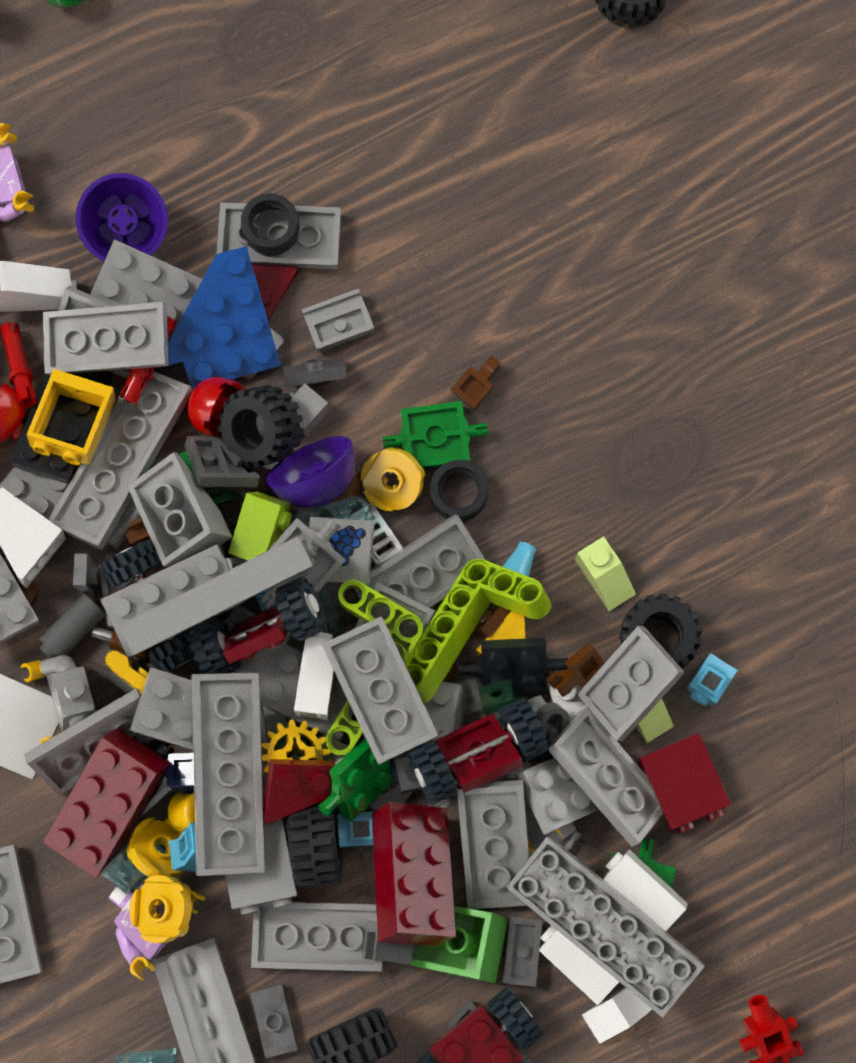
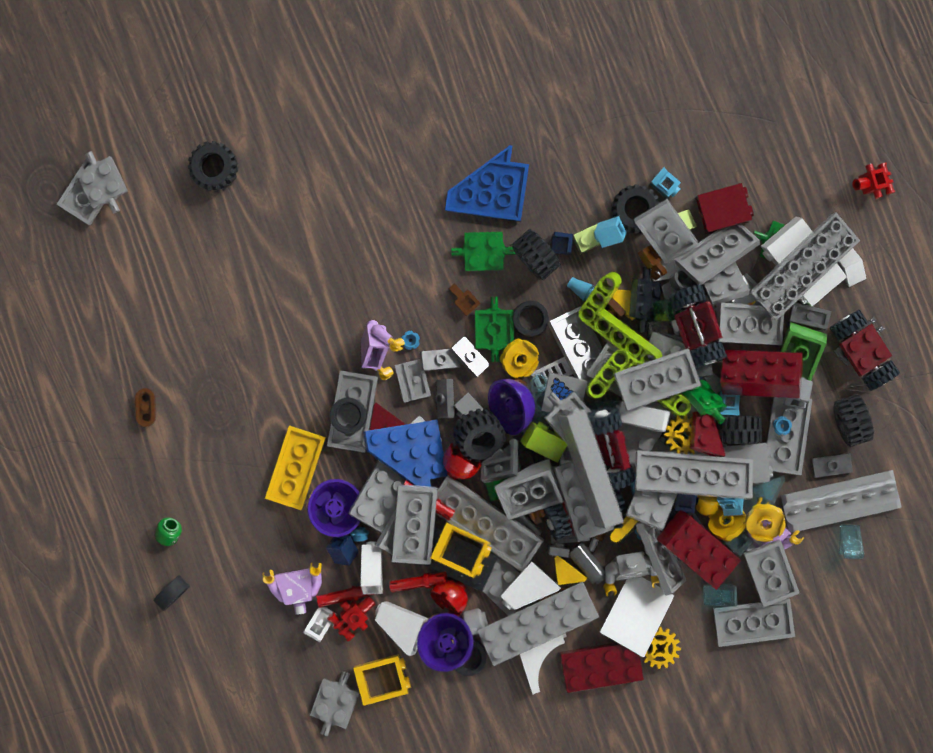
camera: 85 degrees left, 10 degrees up
(34, 857) = (724, 596): none -> clear light blue slope
(53, 596) = (567, 573): none -> yellow slope
(60, 245) = (342, 550): none -> dark blue panel
(78, 932) = (771, 573): none -> light grey plate
(87, 269) = (359, 534): none -> dark azure plate
(184, 161) = (295, 468): none -> yellow plate
(217, 911) = (769, 490): none -> clear light blue slope
(322, 927) = (777, 425): none -> dark azure plate
(376, 356) = (438, 360): none -> flat silver plate
(382, 251) = (375, 346): none -> lavender torso
(385, 402) = (469, 357): none -> plate
(405, 303) = (414, 336): none -> dark azure plate
(558, 405) = (483, 251): none -> green plate
(562, 480) = (536, 254): none -> black tyre
(587, 525) = (562, 243): none -> dark blue panel
(616, 592) = (610, 232): none -> medium azure brick
(659, 407) = (492, 189): none -> blue wing

